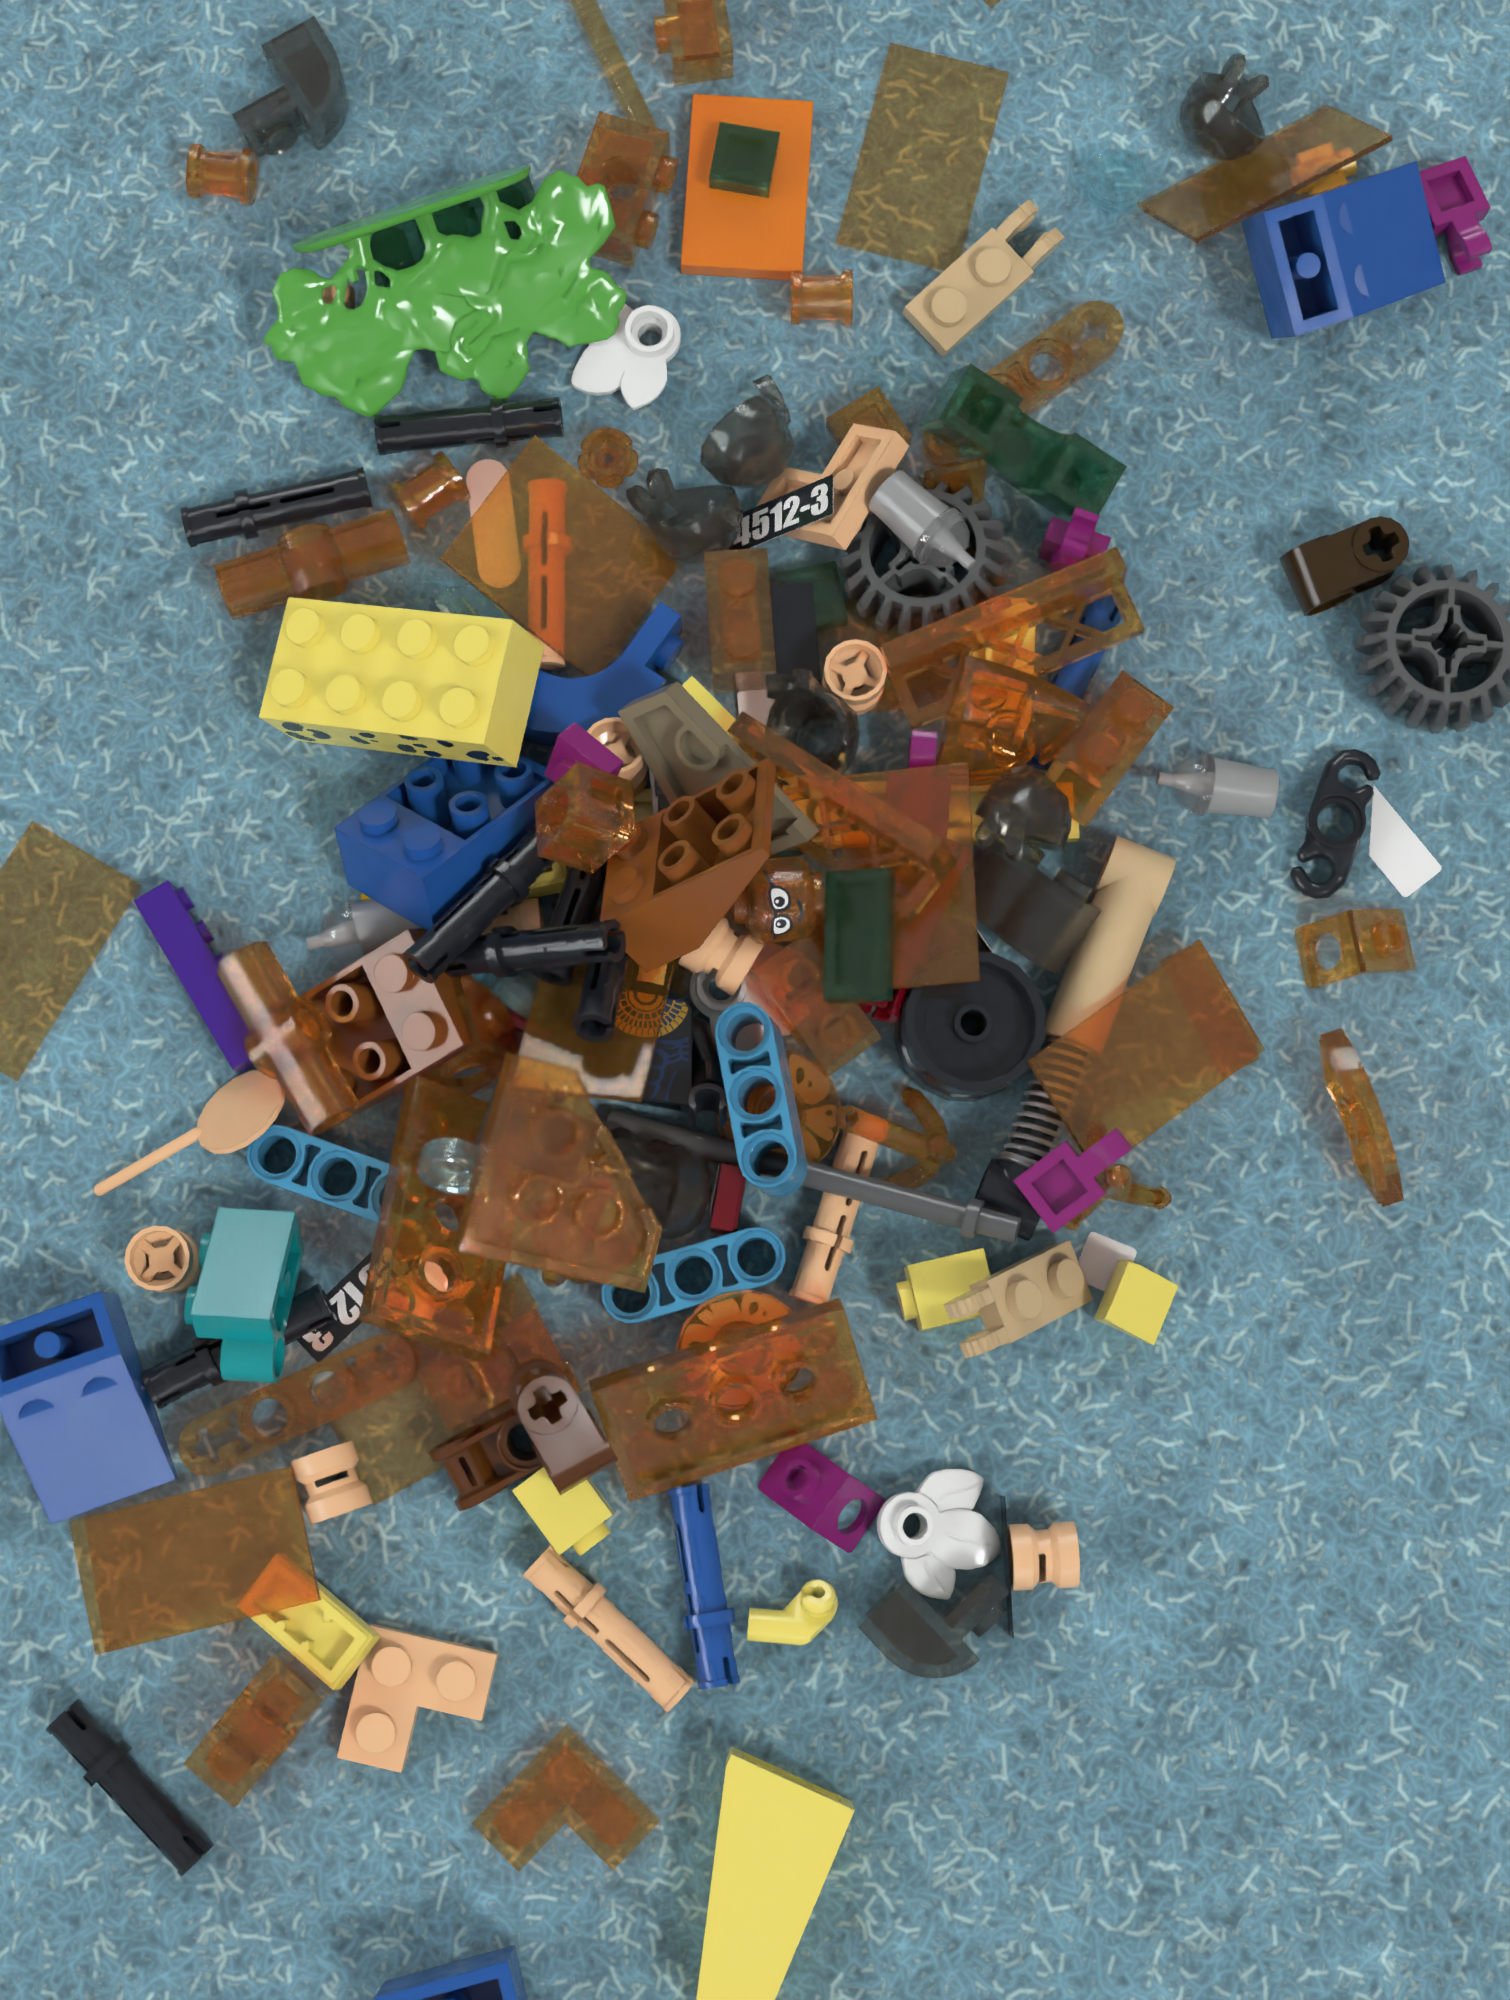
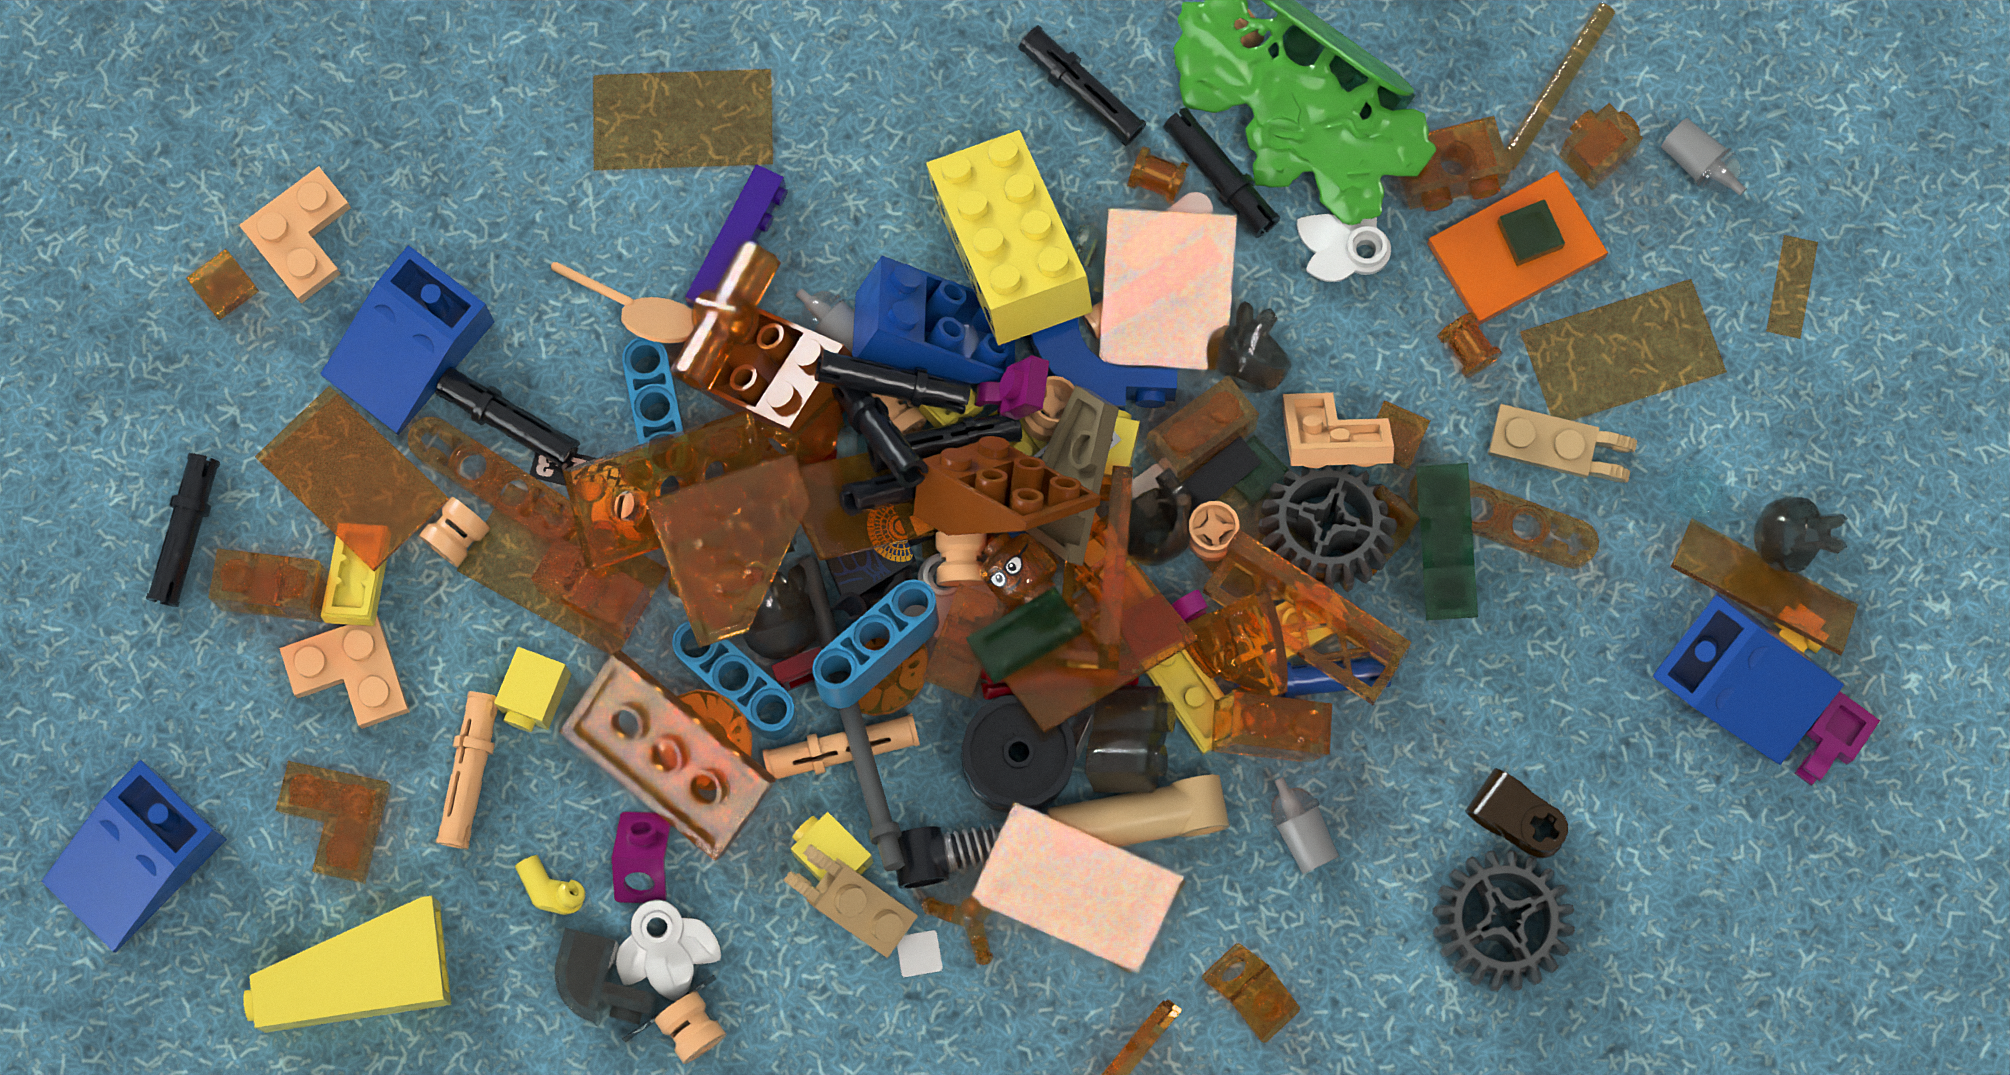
camera: 60 degrees right, 5 degrees down
(153, 1252) = (531, 324): light nougat wheel -> none
(247, 1290) = (544, 397): teal hinge -> none
(311, 563) = (1058, 132): clear orange piece -> none
(447, 1165) = (700, 463): clear light blue tile -> none
(484, 1460) = (531, 623): reddish brown piece -> none
(561, 1430) = (571, 651): reddish brown piece -> none
(585, 818) = (987, 407): clear orange brick -> none
(604, 442) = (1264, 263): clear orange plate -> none
(703, 1585) = (533, 815): blue pin -> none
(751, 440) = (1333, 360): clear smoke piece -> none
(786, 514) = (1292, 412): sticker -> none
(922, 522) = (1342, 503): light grey piece -> none
(930, 1148) = (919, 783): clear orange piece -> none
(1024, 809) = (1188, 695): clear smoke piece -> none
(1066, 1182) = (949, 878): magenta plate -> none
(1073, 540) = (1405, 617): magenta plate -> none
(1136, 1301) = (904, 989): light yellow slope -> none
(1337, 852) = (1311, 940): black piece -> none
(1398, 849) = (1343, 981): white sticker -> none

